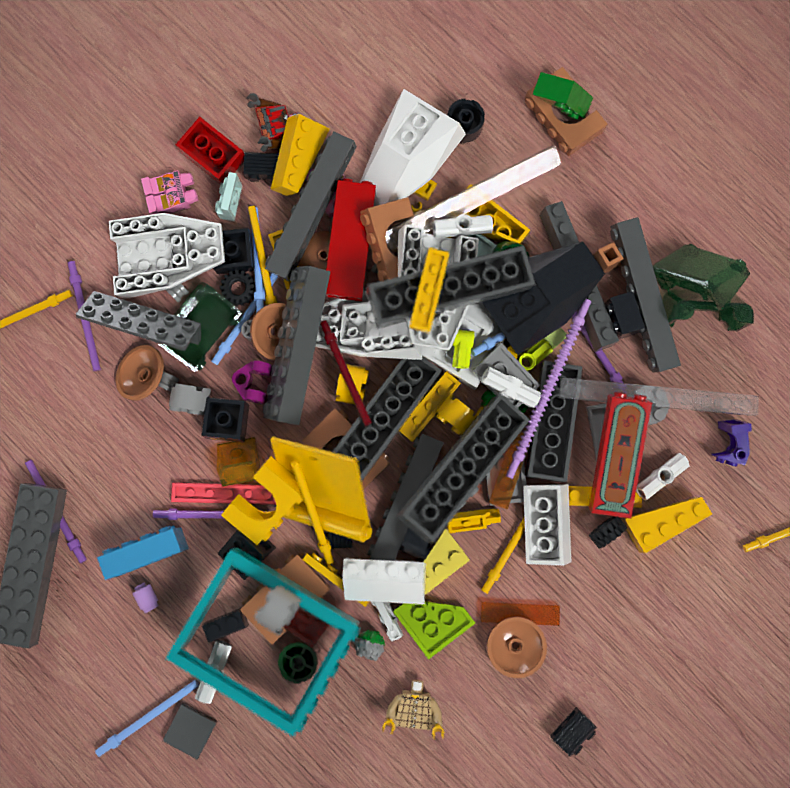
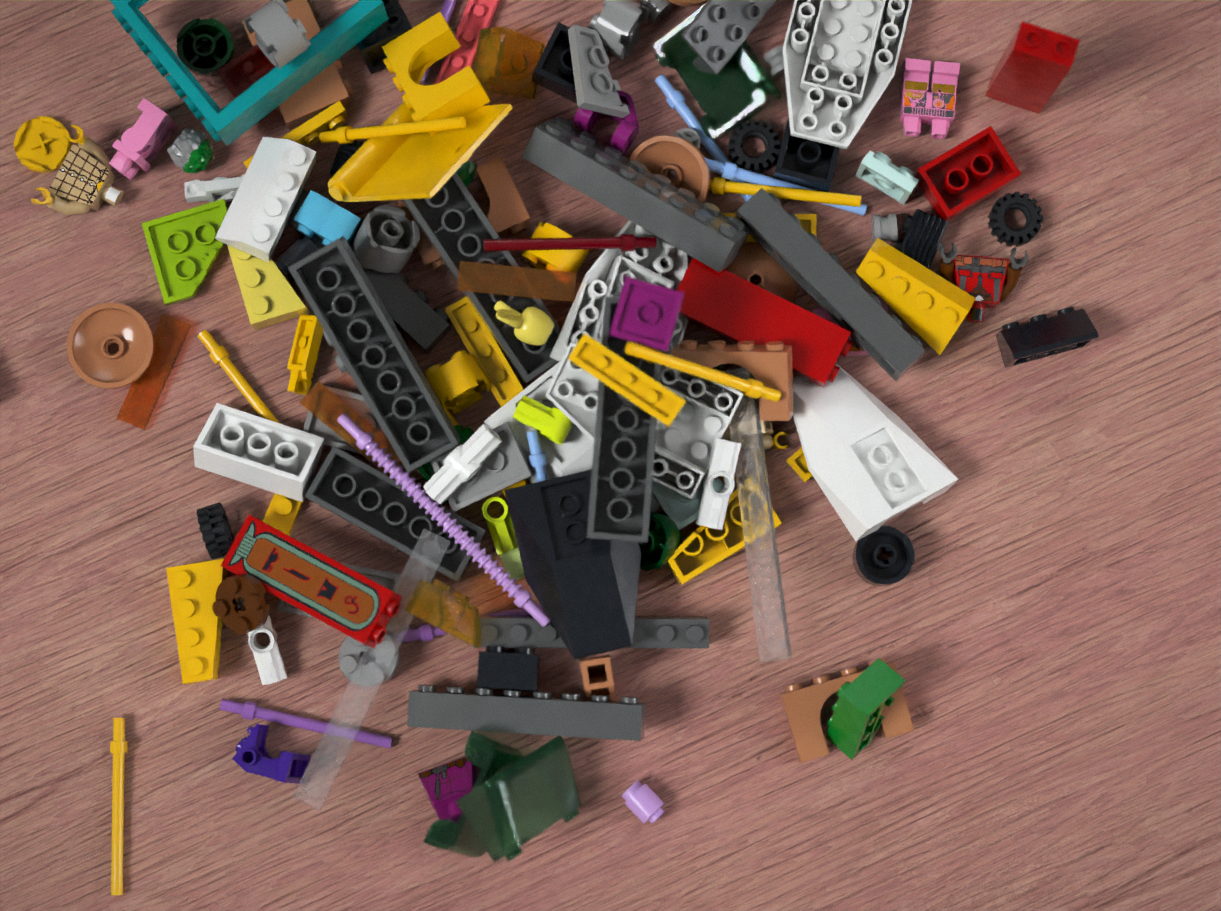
camera: 110 degrees right, 0 degrees up
(130, 120) = (1032, 67): none -> red brick
(223, 106) = (1025, 205): none -> black tyre
(234, 396) = (592, 78): none -> light grey wing
(261, 191) = (884, 227): none -> light grey wheel
(295, 71) = (1045, 336): none -> black slope
(376, 679) = (143, 140): none -> bright pink hips
(382, 291) = (646, 314): none -> magenta plate
(382, 396) = (516, 281): none -> clear orange tile
(384, 492) = (386, 239): none -> light grey brick
(385, 535) = (326, 220): none -> medium azure brick
(399, 222) = (749, 387): none -> yellow bar
(399, 748) = (42, 144): none -> yellow tile
(408, 377) = (530, 327): none -> light yellow piece
(608, 362) = (446, 611): none -> clear yellow slope
(659, 490) = (228, 606): none -> reddish brown plate
(666, 210) = (643, 802): none -> lavender brick
(706, 468) = (250, 710): none -> medium lavender bar
(708, 324) = (447, 785): none -> magenta torso

